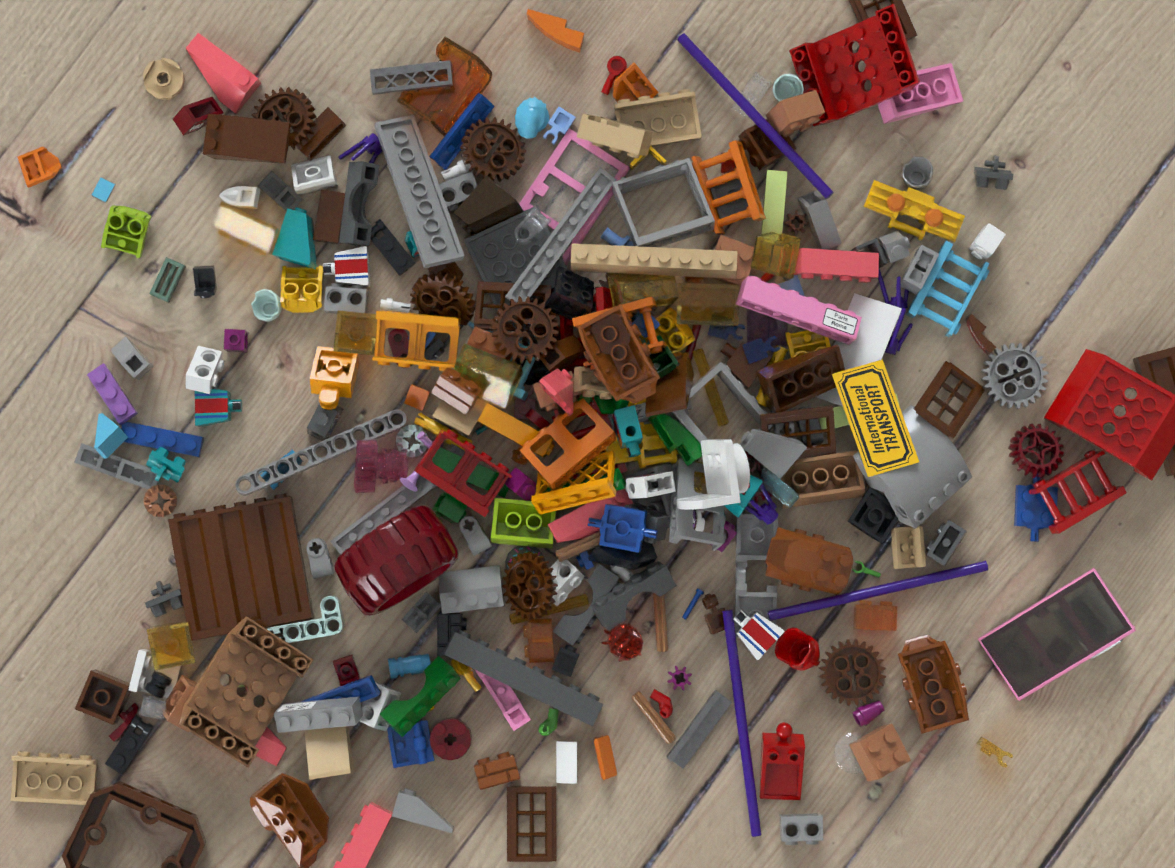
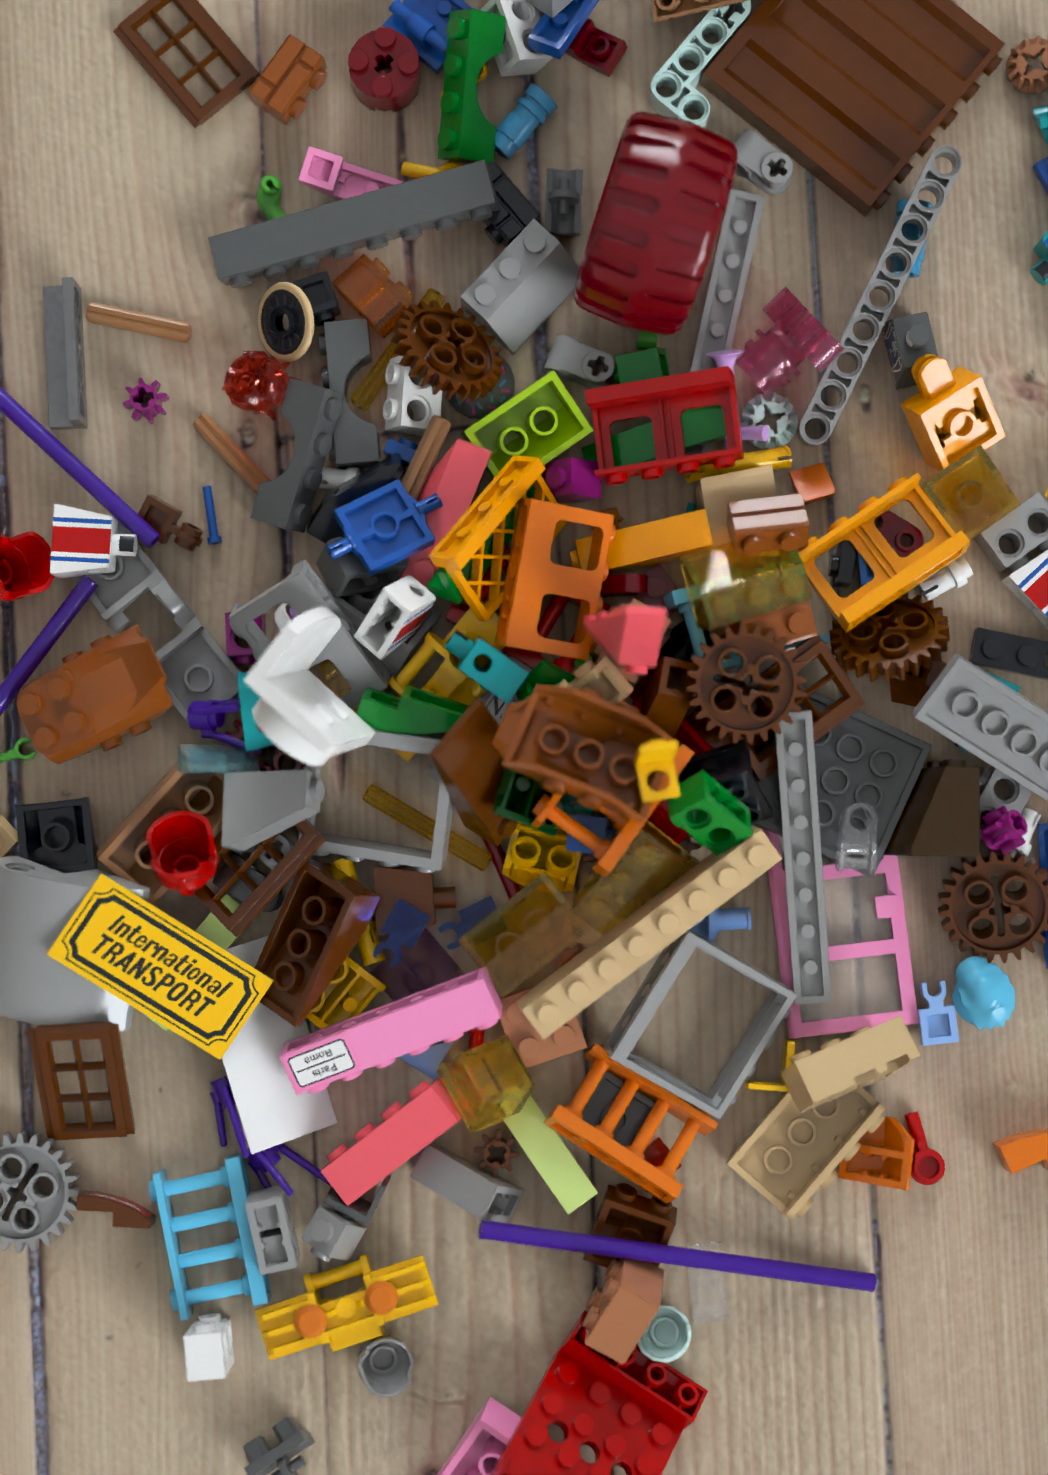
camera: 140 degrees right, 0 degrees up
(465, 178) = (1004, 829): none -> magenta gear
(566, 762) = (205, 169): white slope -> none
(579, 661) = (277, 301): none -> black wheel
(586, 287) = (710, 813): none -> green brick
(591, 326) = (657, 756): none -> yellow bracket
(605, 757) = (160, 216): orange slope -> none
(665, 703) = (139, 353): red arm -> none
(825, 459) = (177, 846): none -> red helmet

